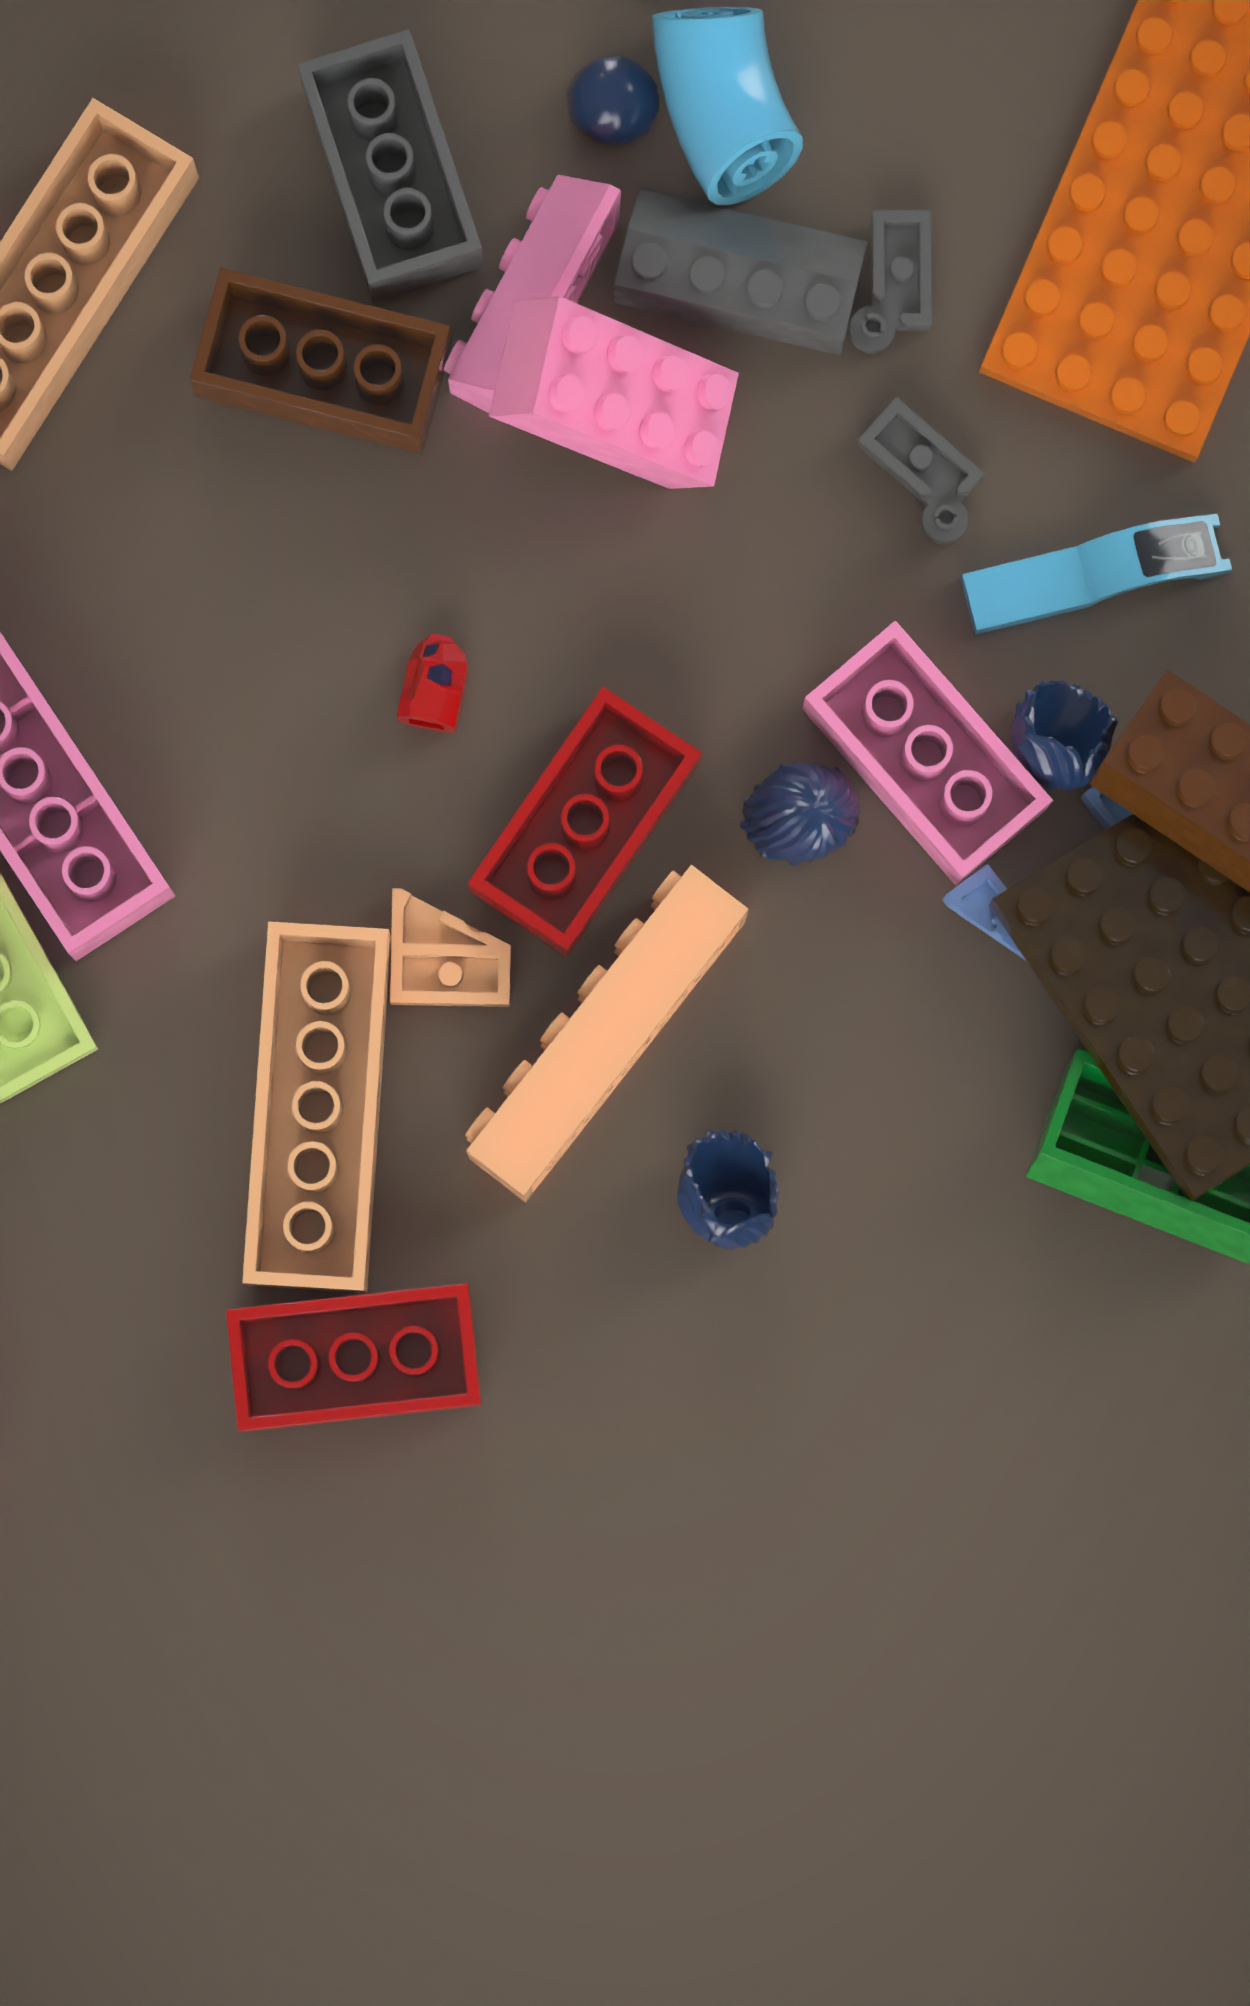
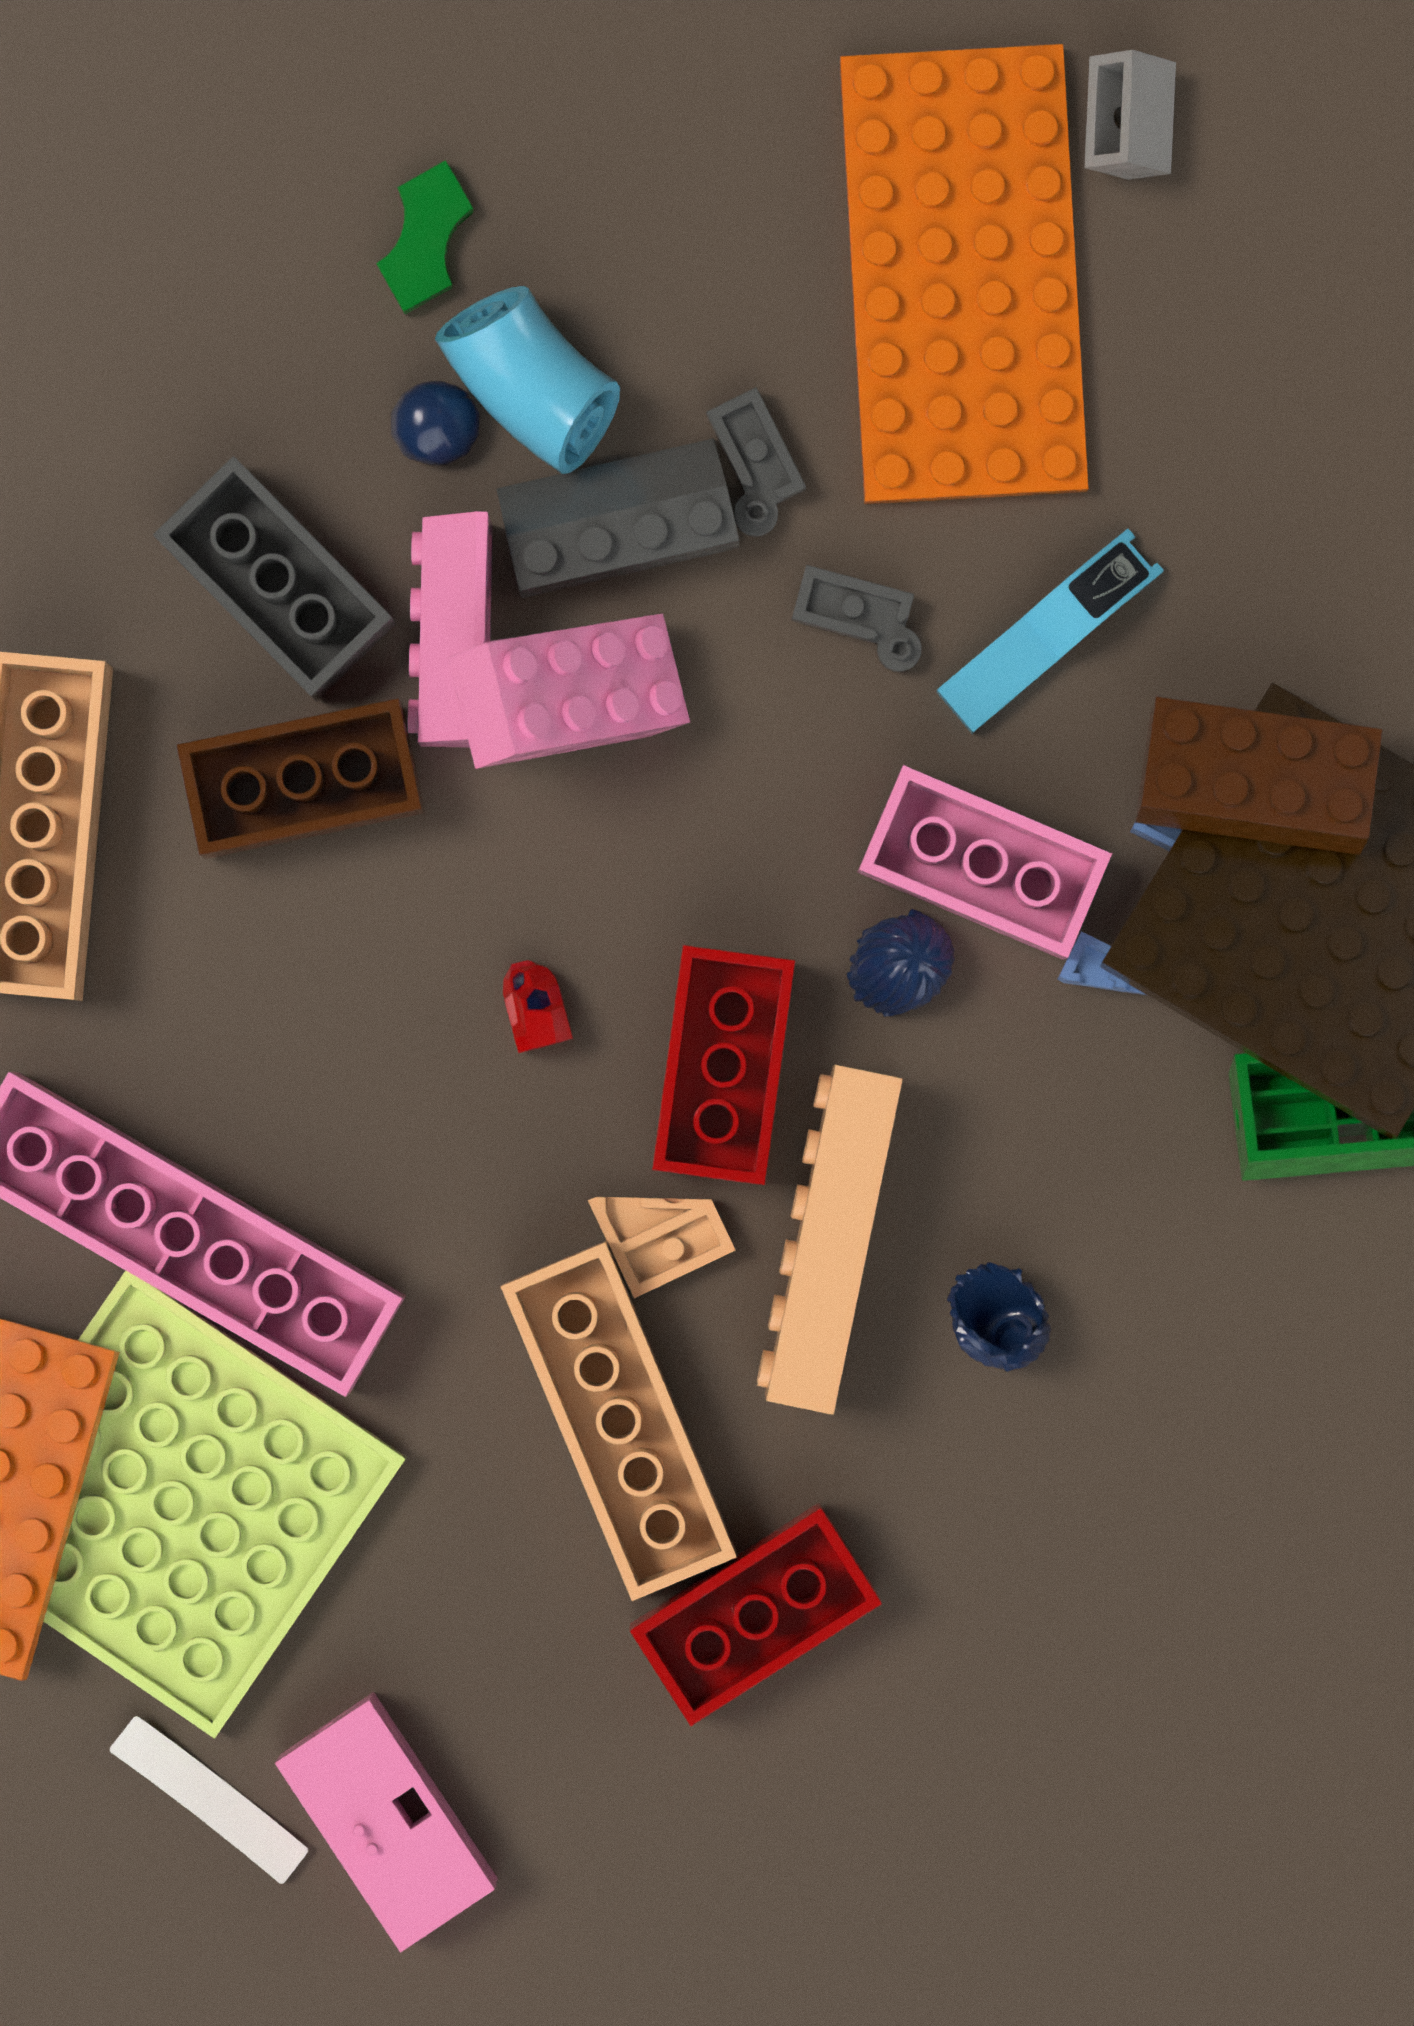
camera: 25 degrees left, 5 degrees up
(1062, 734) = (1090, 789): dark blue hair -> none

